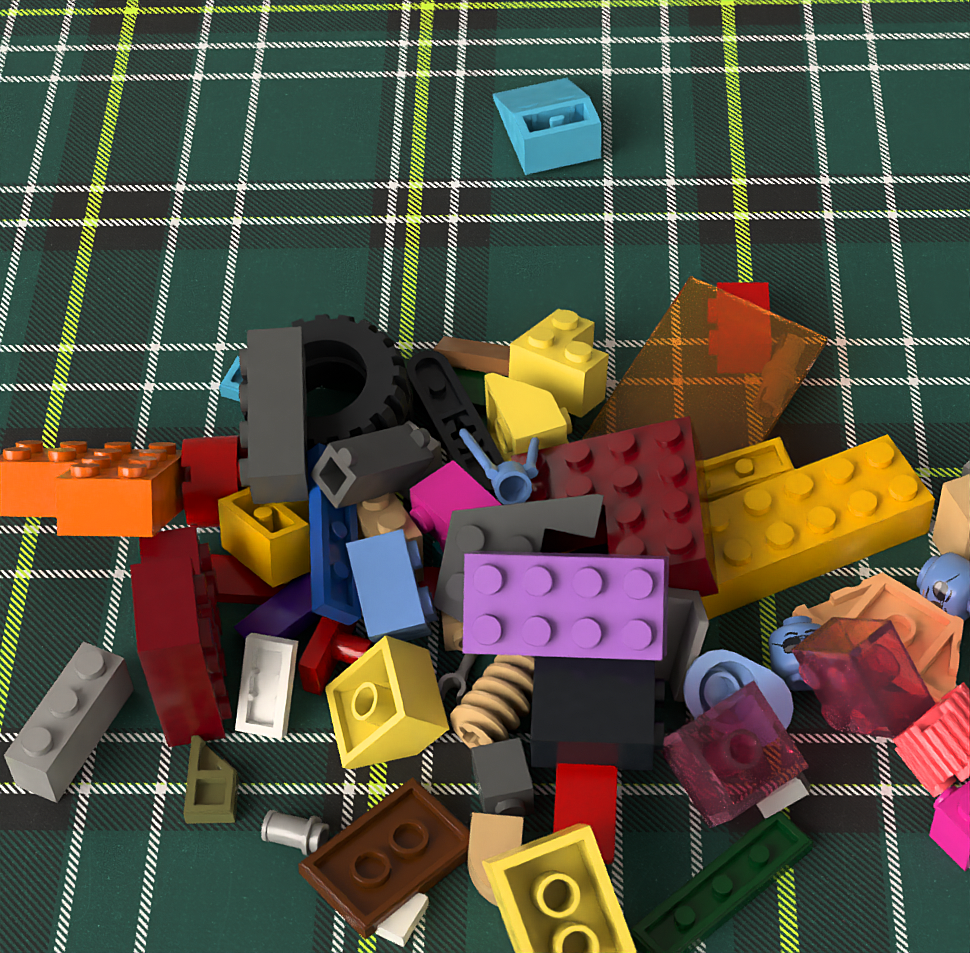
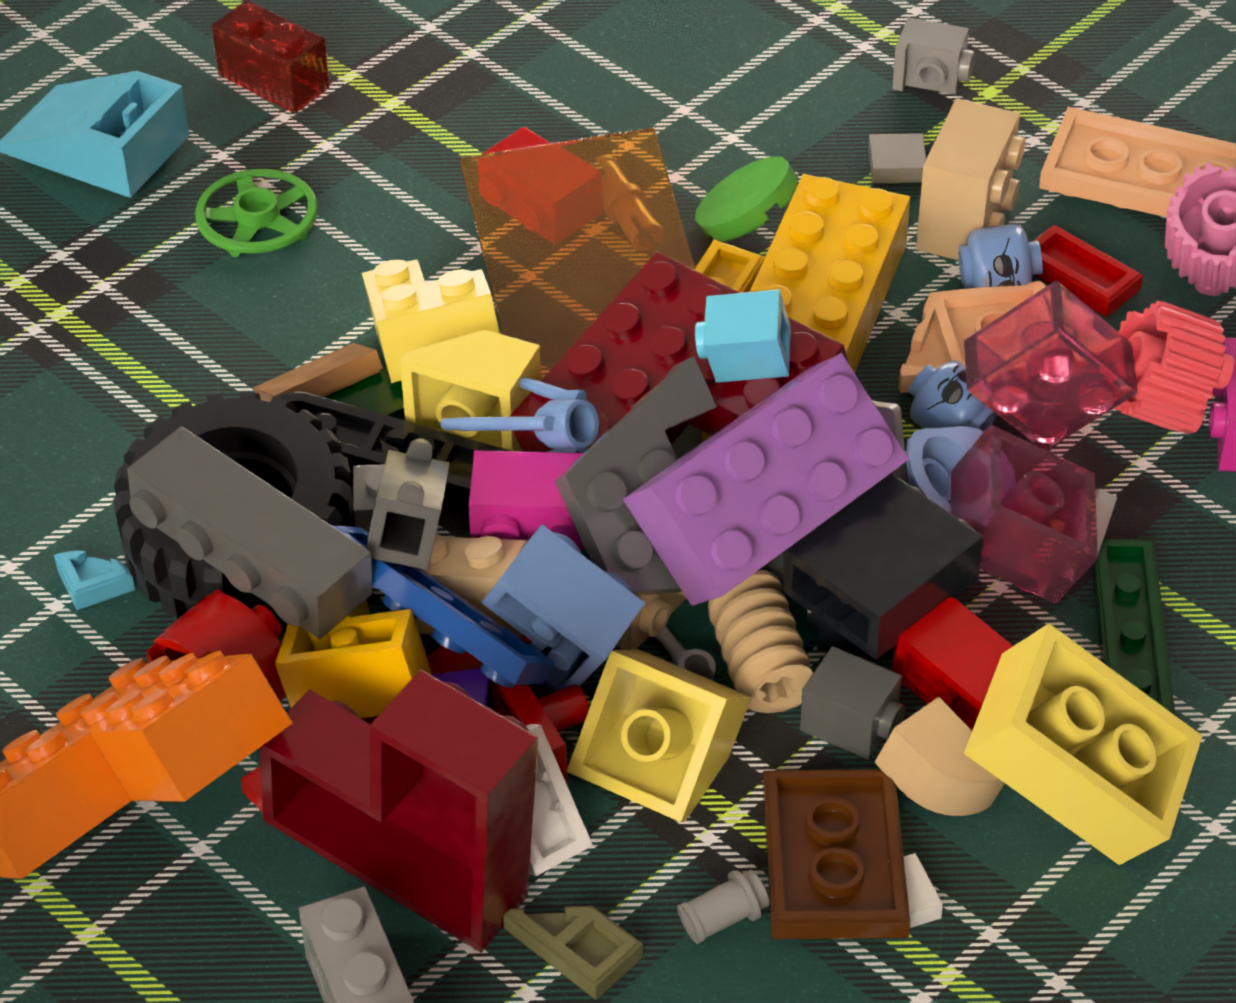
camera: 50 degrees left, 5 degrees down
(581, 230) = (255, 210): none -> bright green wheel
(645, 507) = (745, 336): none -> medium azure brick
(694, 137) = (271, 56): none -> clear red brick
(847, 423) = (742, 198): none -> bright green tile

